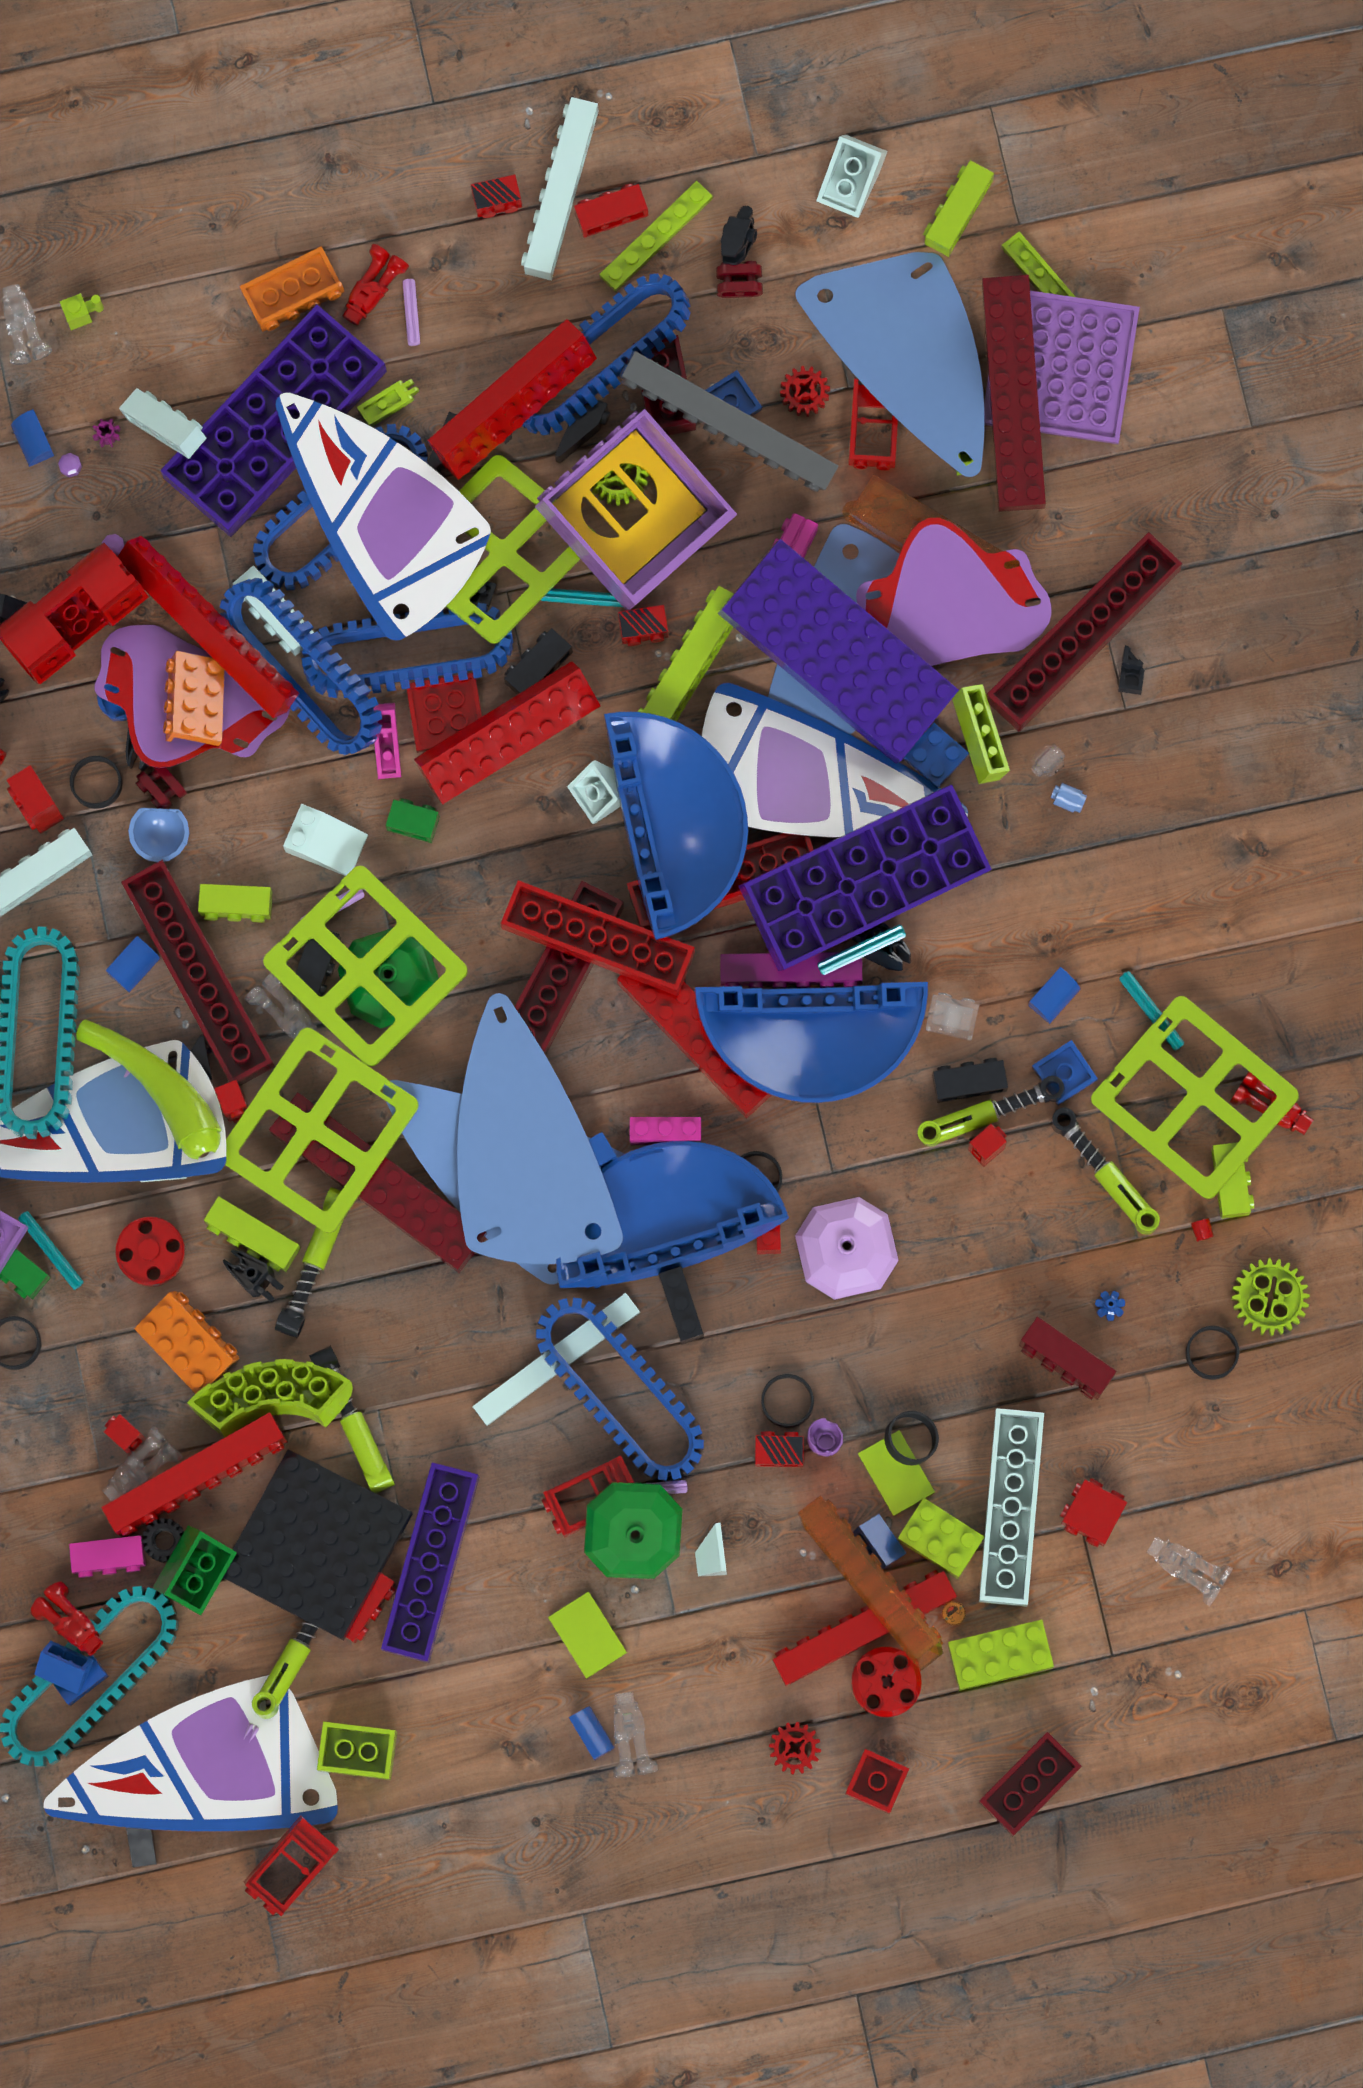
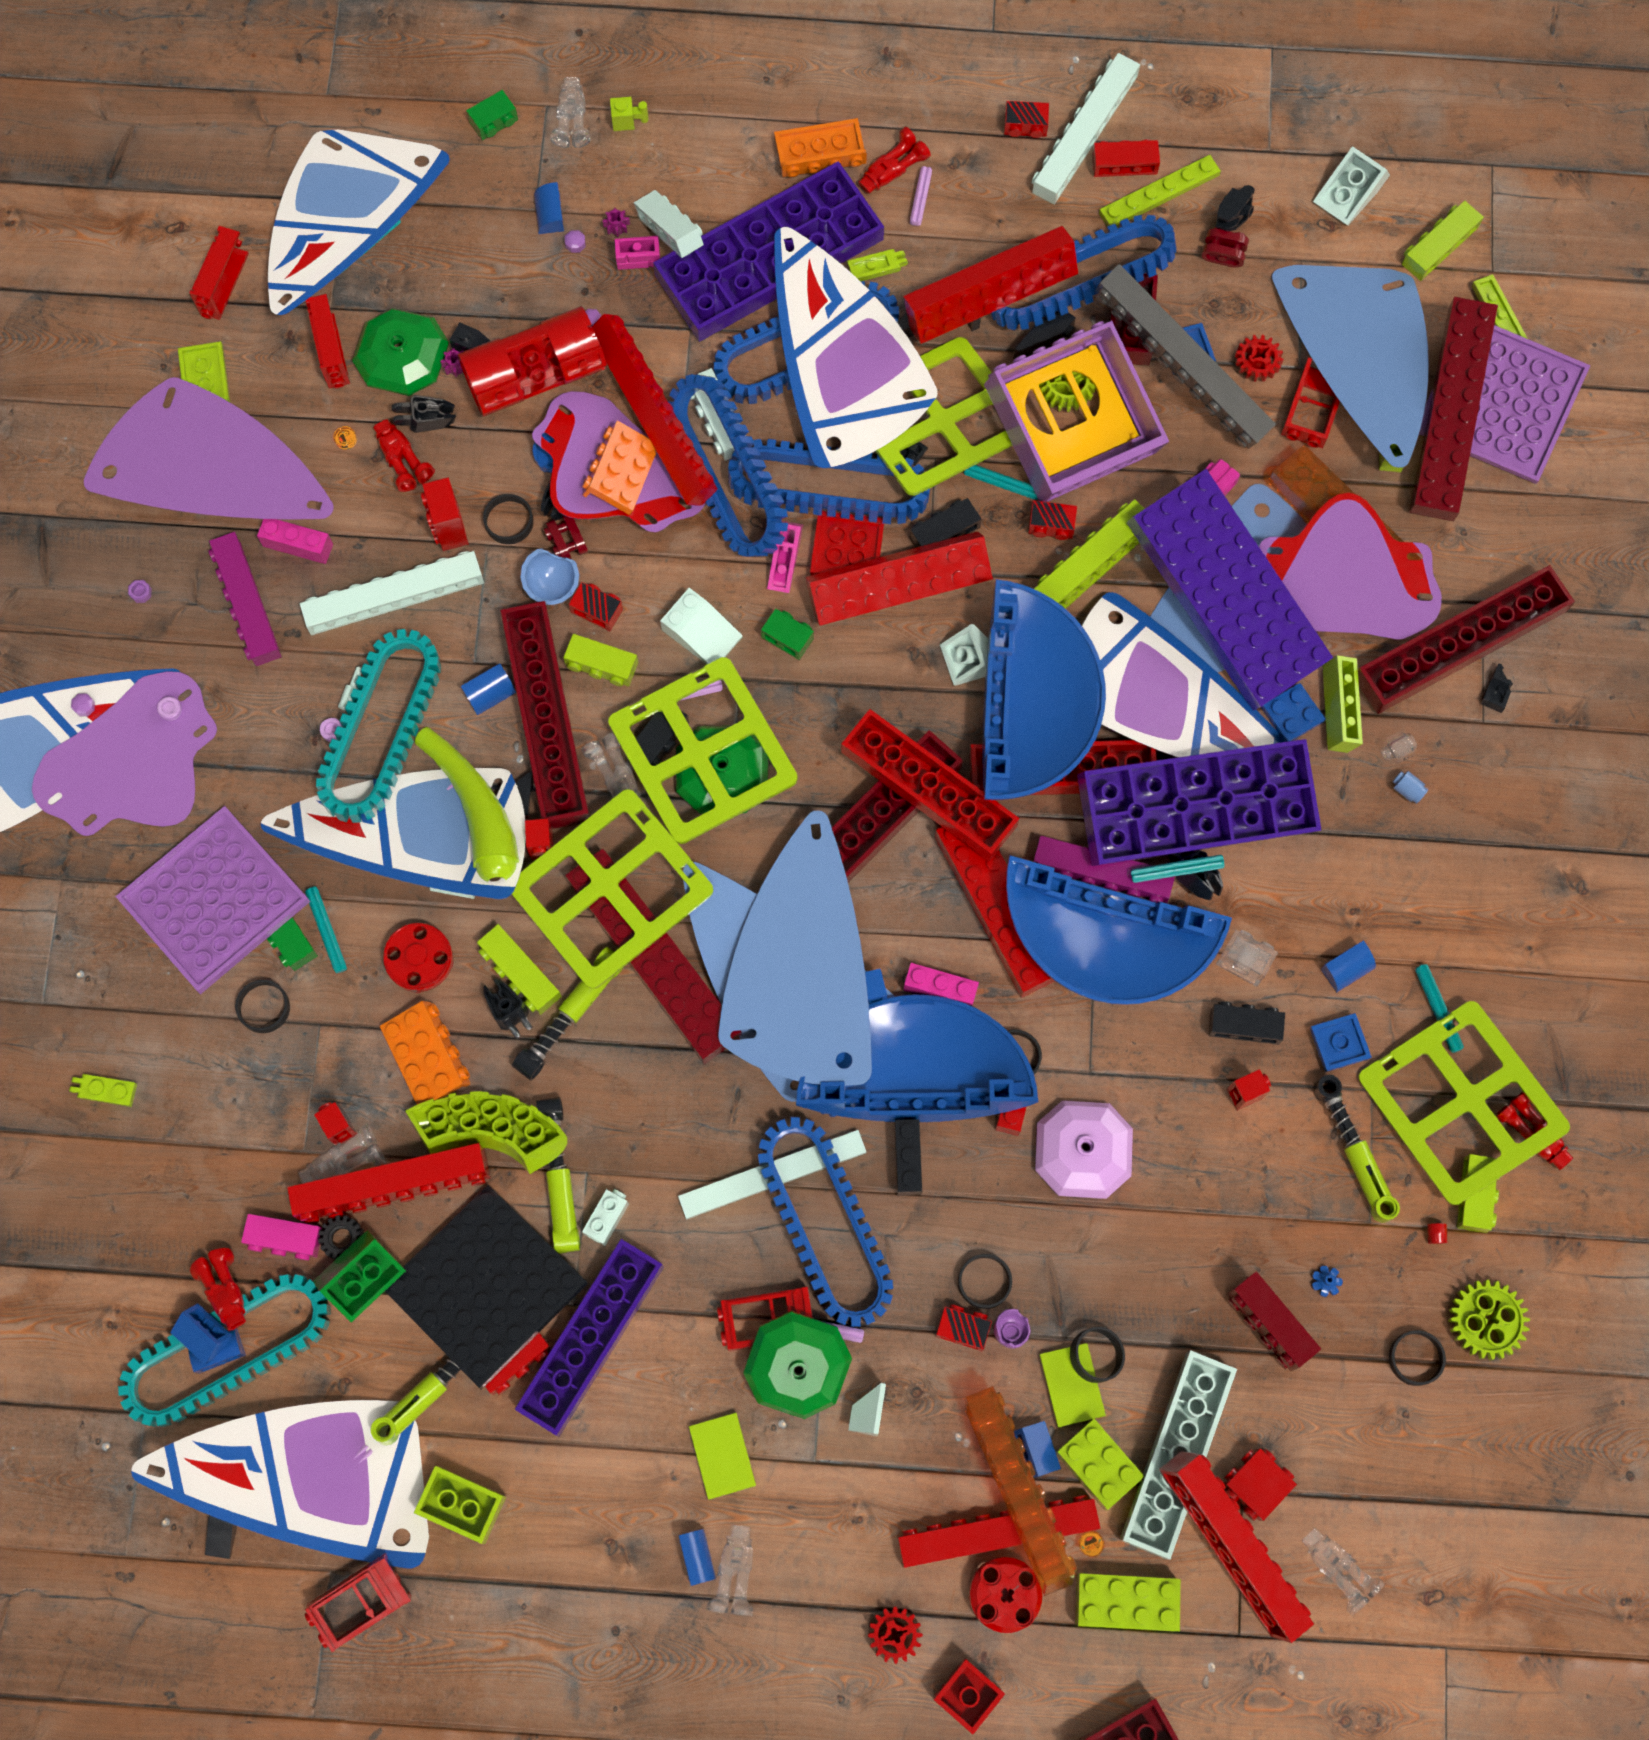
camera: 10 degrees right, 5 degrees down
(139, 461) = (637, 252): none -> dark pink brick
(213, 847) = (596, 606): none -> red brick
(410, 1446) = (606, 1216): none -> light aqua brick
(988, 1112) = (1257, 1058): piece -> none
(1084, 1573) = (1237, 1546): none -> red brick

